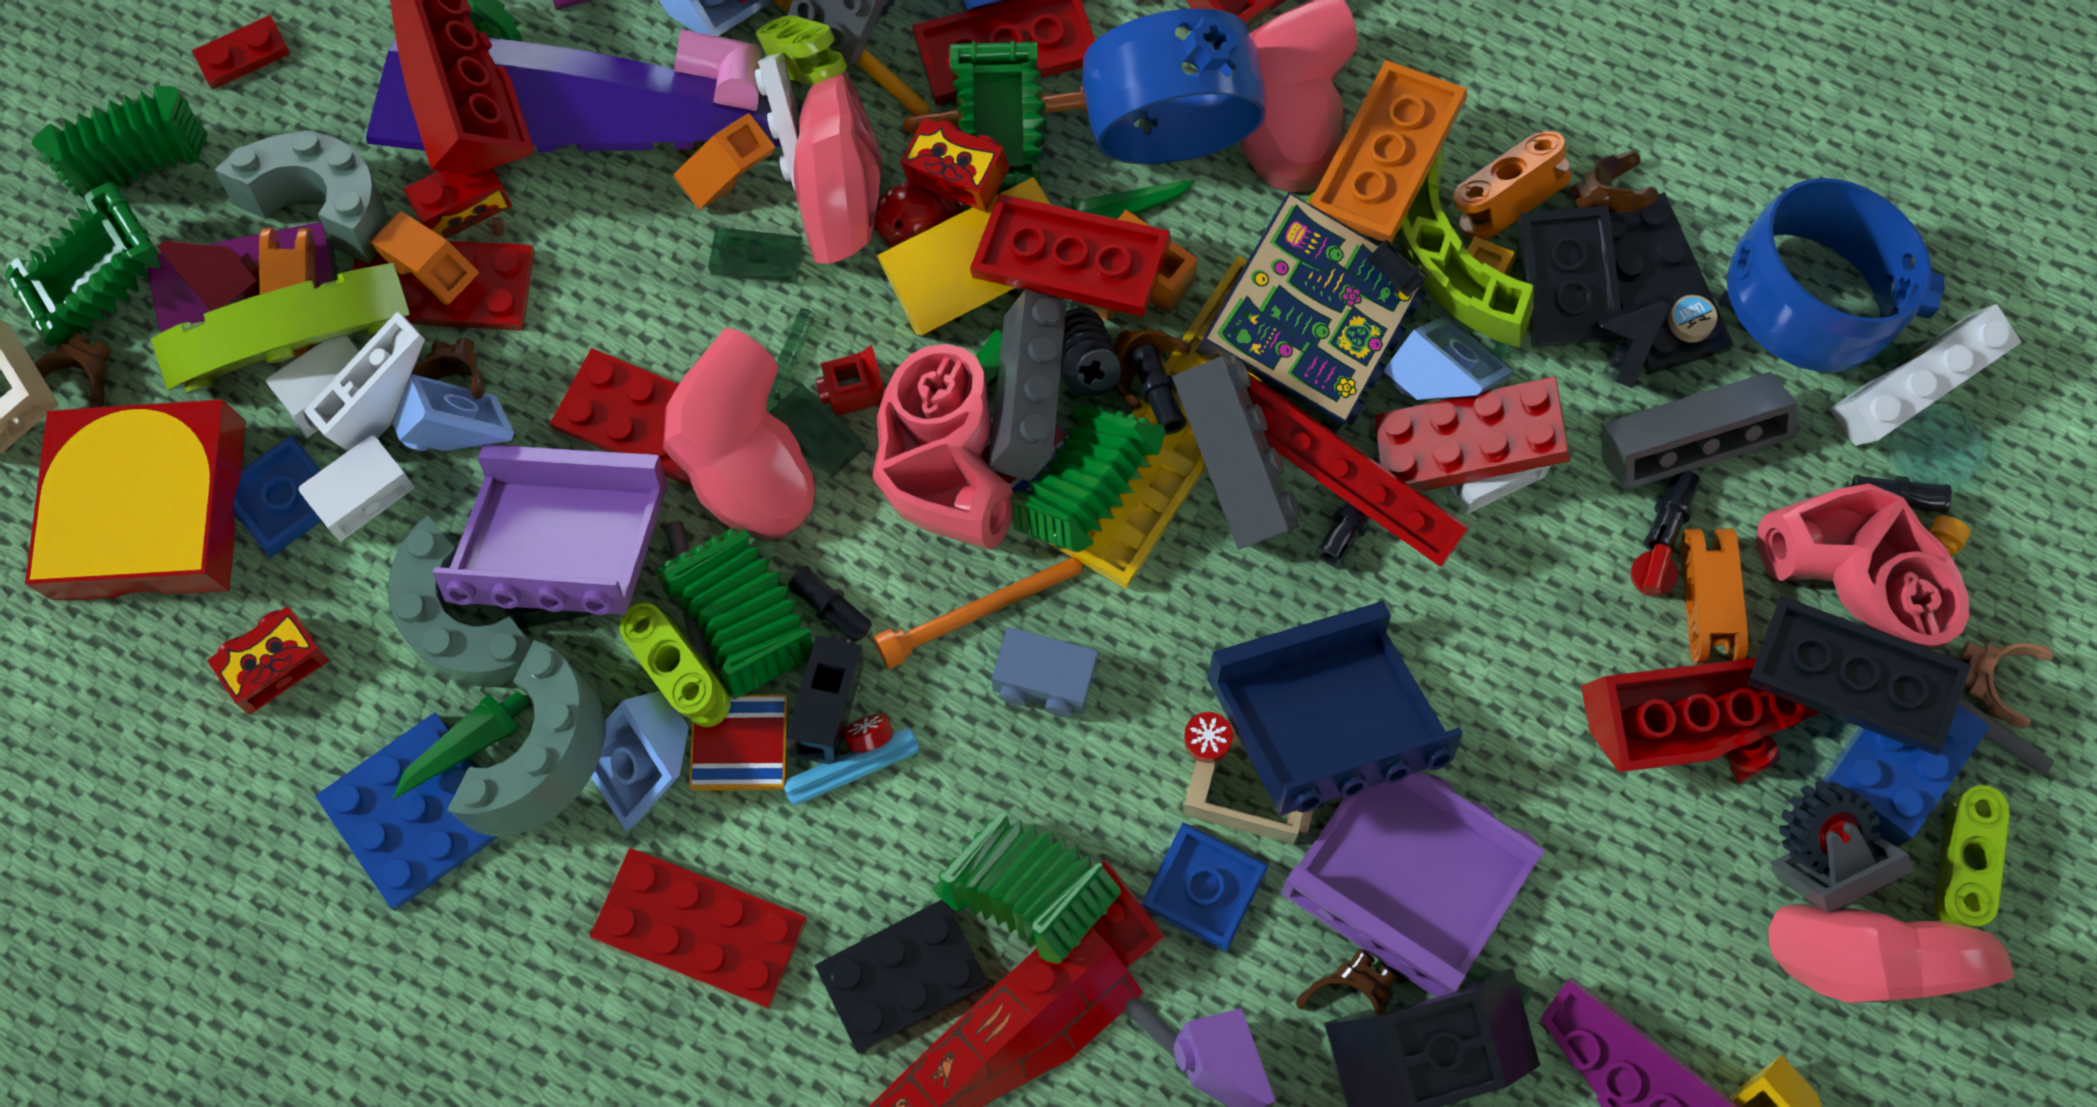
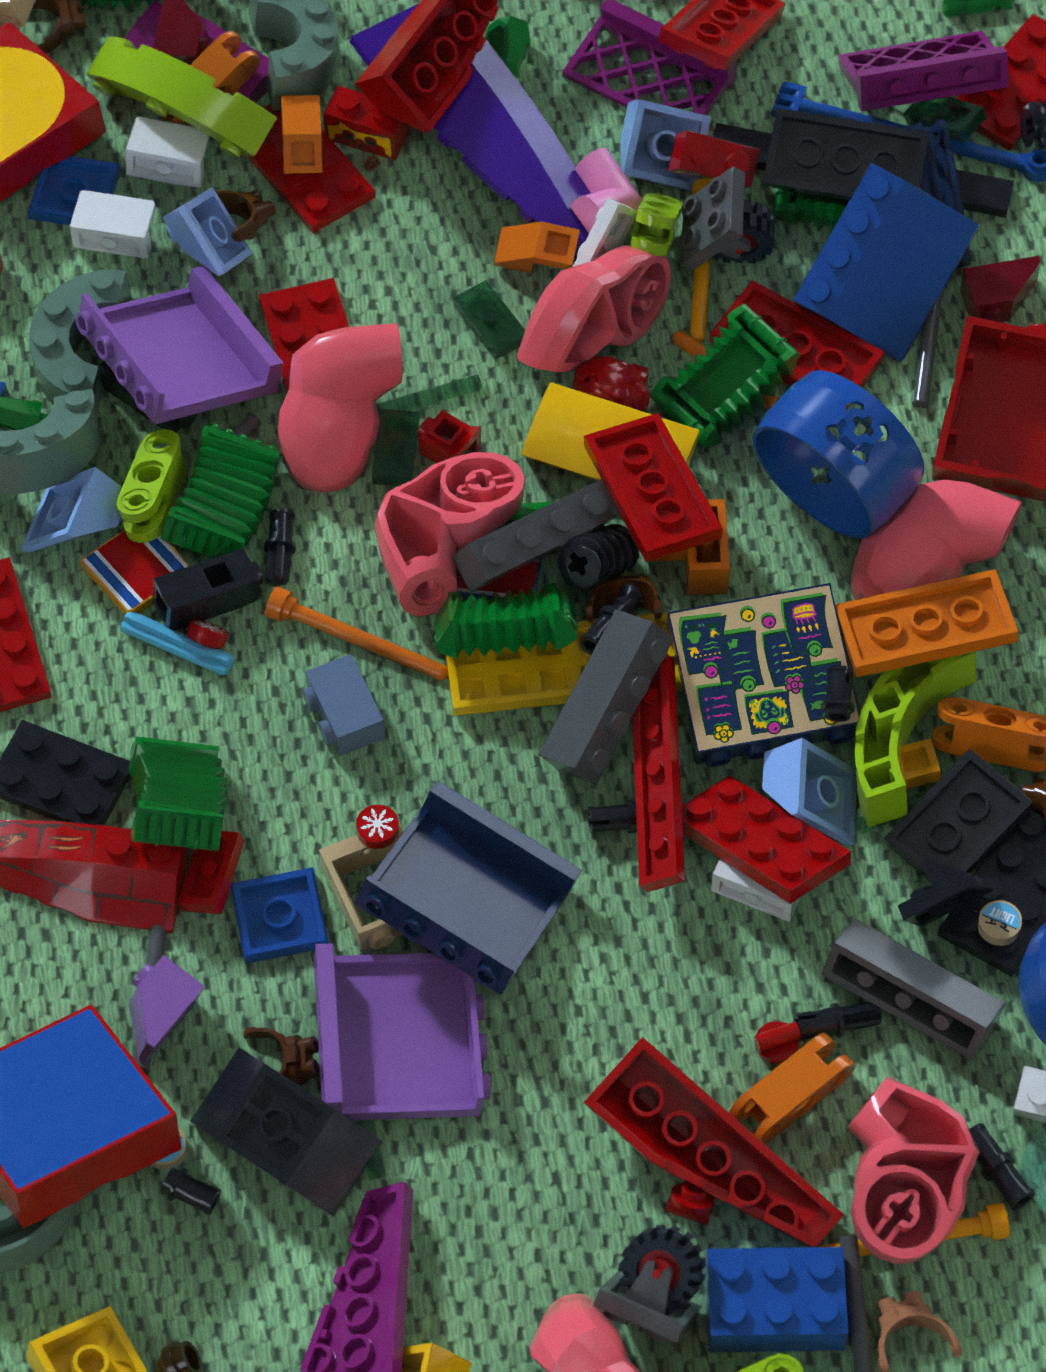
camera: 50 degrees right, 10 degrees down
(369, 387) = (181, 174): white slope -> none
(955, 163) = (656, 372): red brick -> none
(1134, 201) = (747, 509): green bar -> none
(1859, 675) = (798, 1207): black plate -> none

